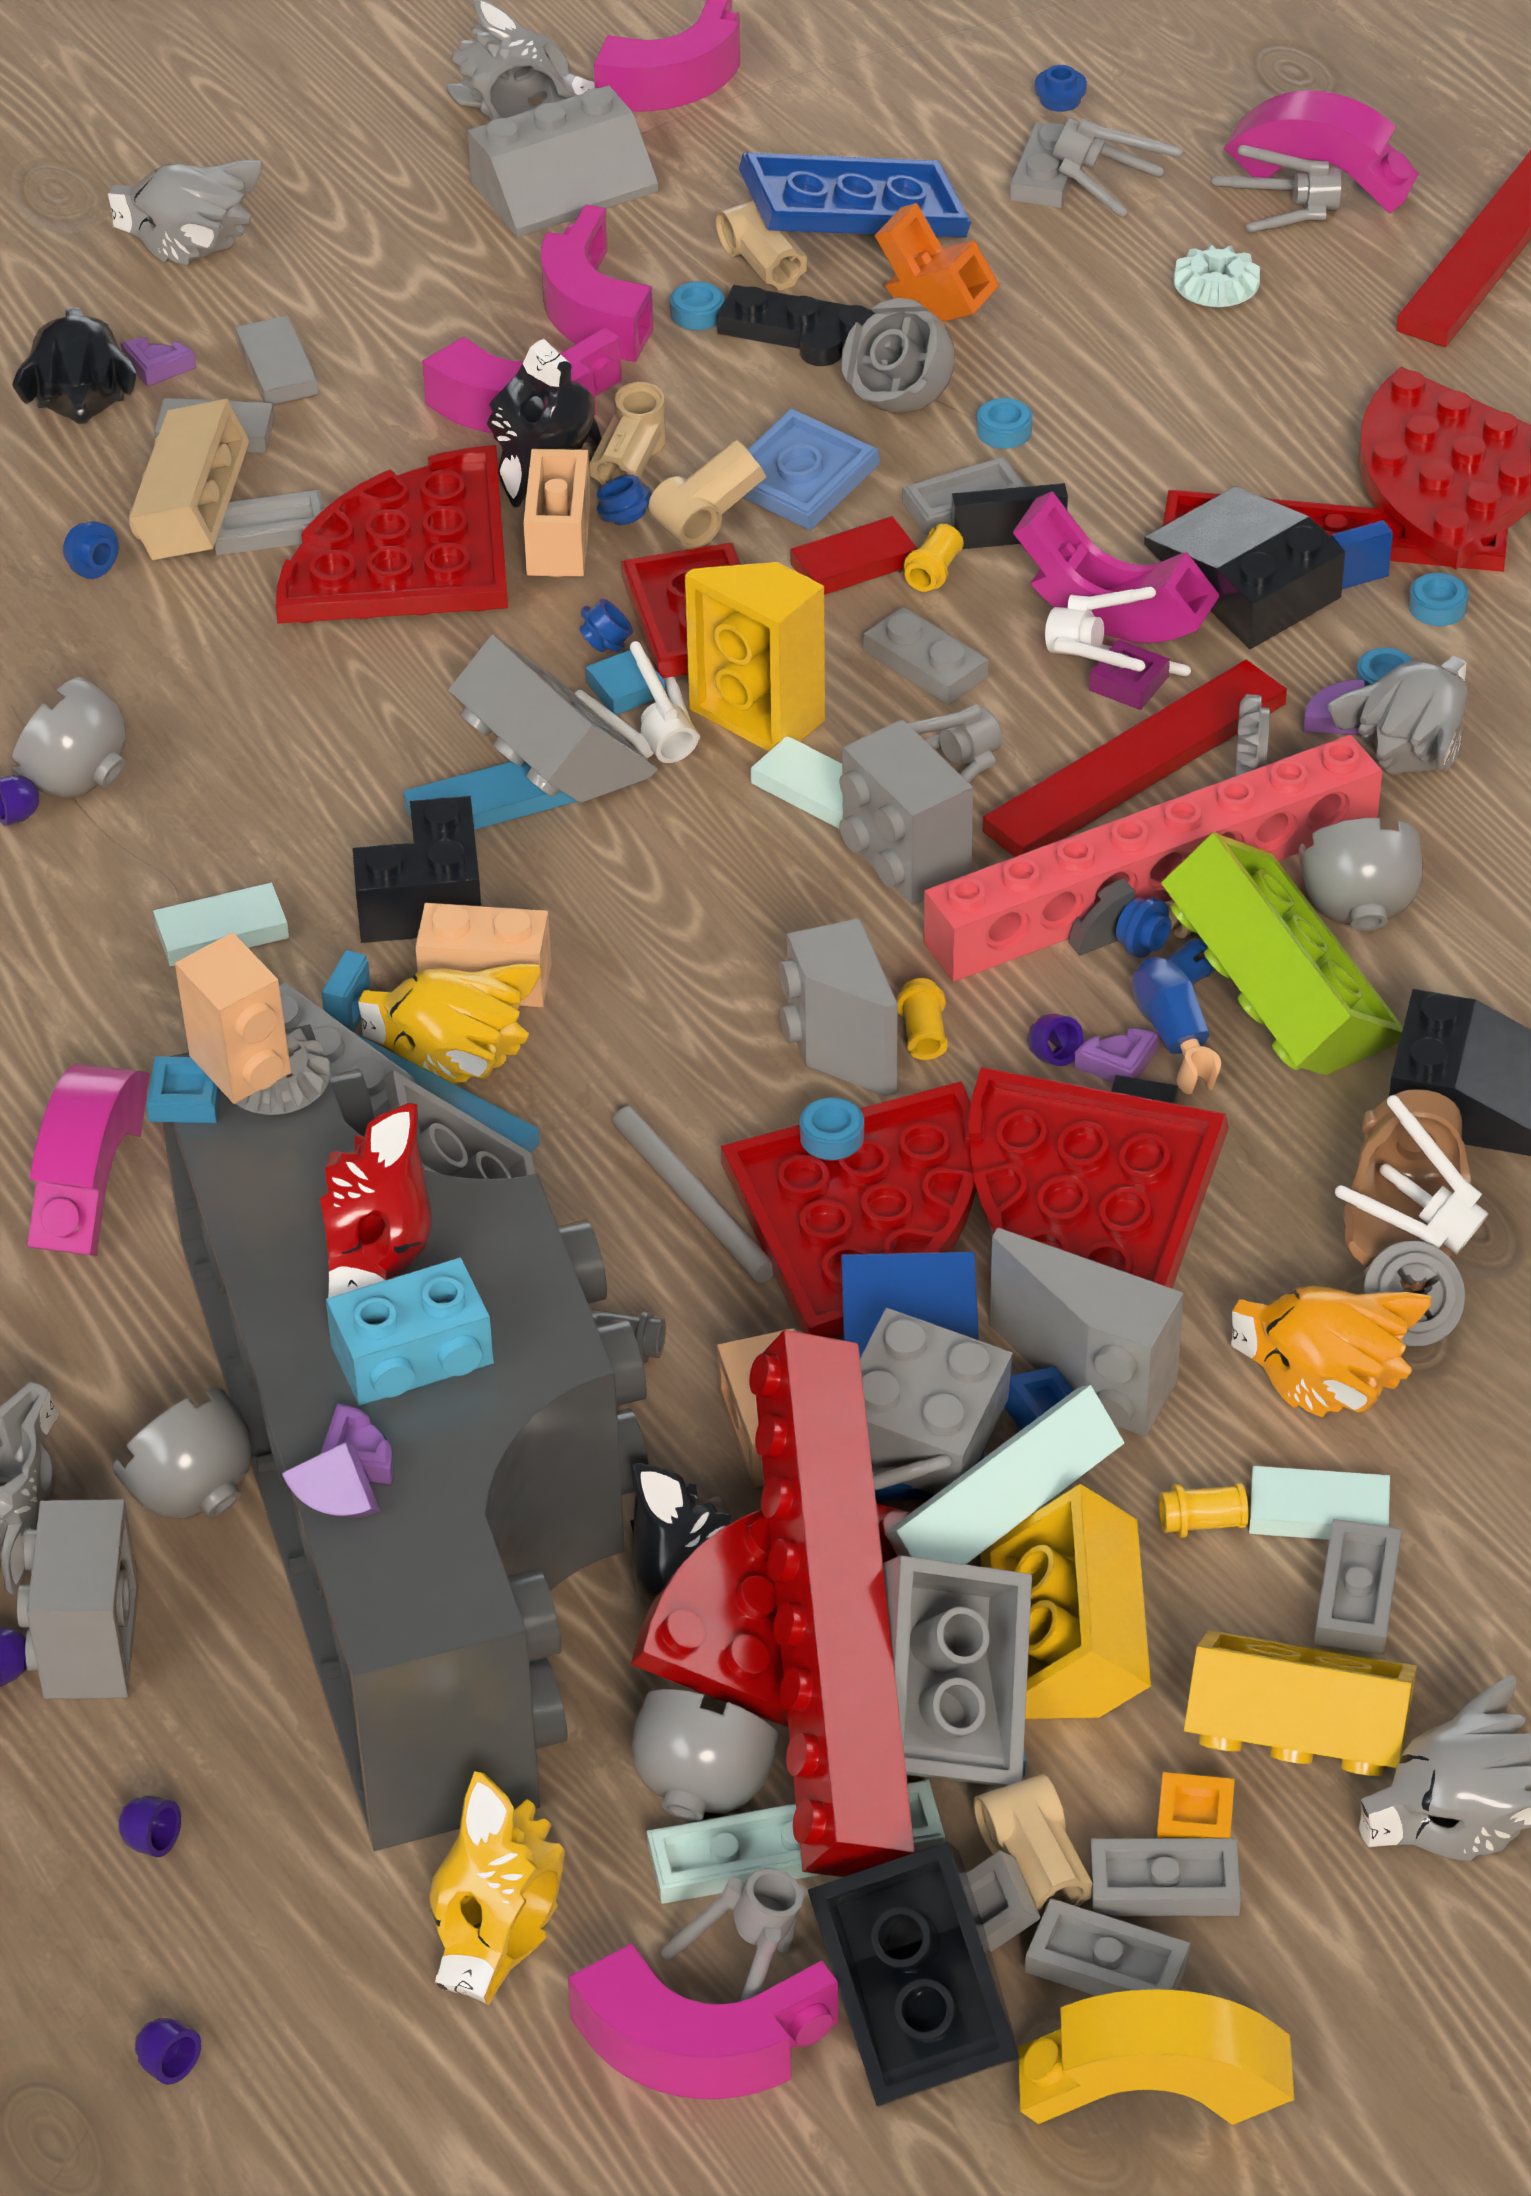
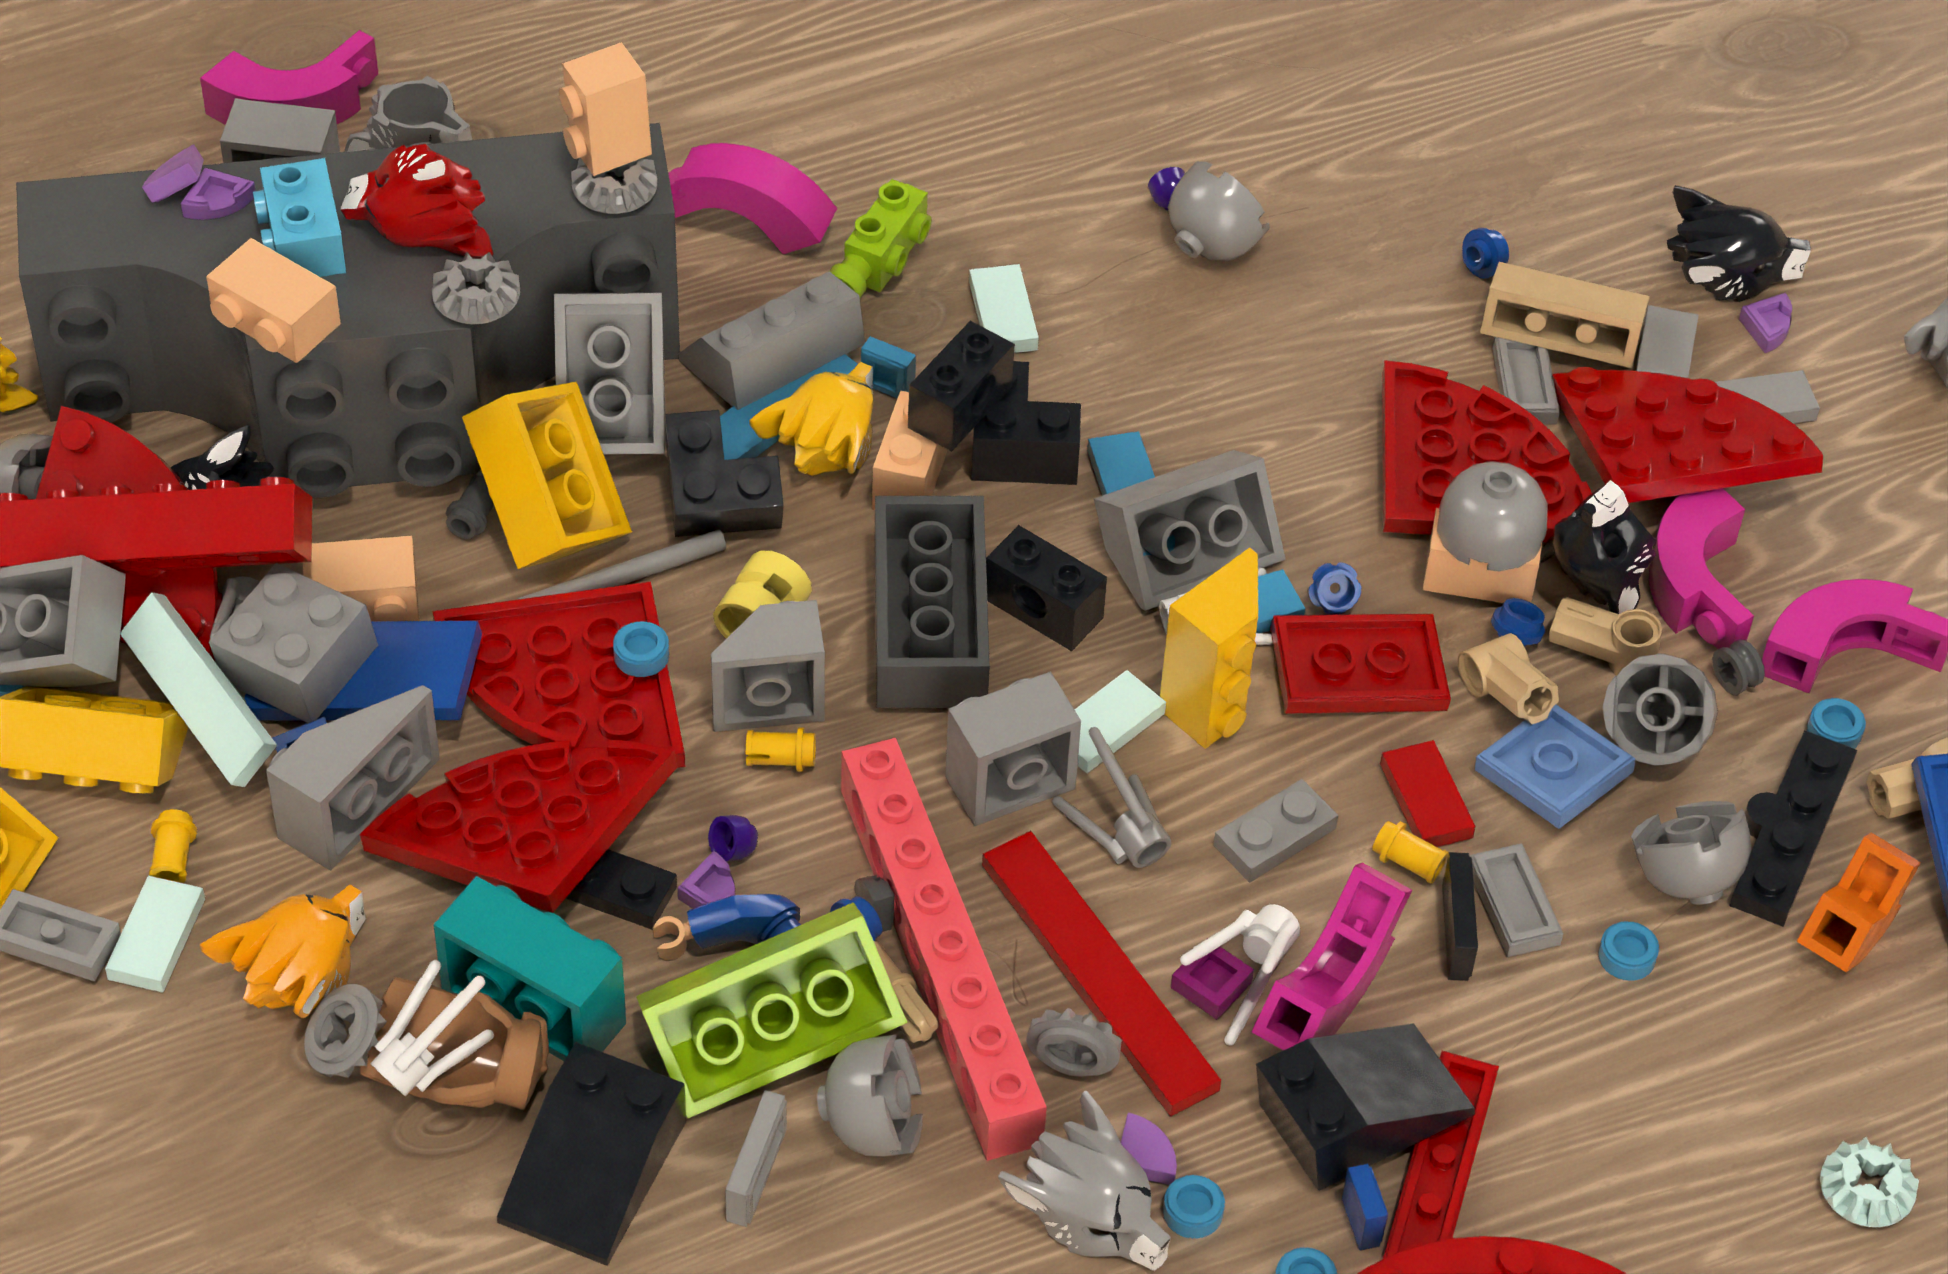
camera: 95 degrees right, 5 degrees up
(123, 1013) = (884, 237): none -> lime brick
(360, 391) = (1678, 433): none -> red plate
(441, 857) = (960, 385): none -> black brick
(486, 1185) = (475, 304): none -> light grey gear
(544, 465) = (1493, 516): none -> light grey cylinder
(556, 1332) = (273, 300): none -> light nougat brick
(570, 1101) = (716, 491): none -> black brick
(648, 1228) = (546, 473): none -> yellow slope
(649, 356) = (1738, 667): none -> dark grey bush
(659, 829) = (1045, 587): none -> black brick
(701, 903) = (930, 601): none -> dark grey brick
(724, 1044) = (763, 581): none -> light yellow wheel
(736, 383) = (1660, 709): none -> light grey cylinder
(1305, 1135) = (532, 966): none -> teal brick
(1452, 960) = (756, 1159): none -> light grey tile

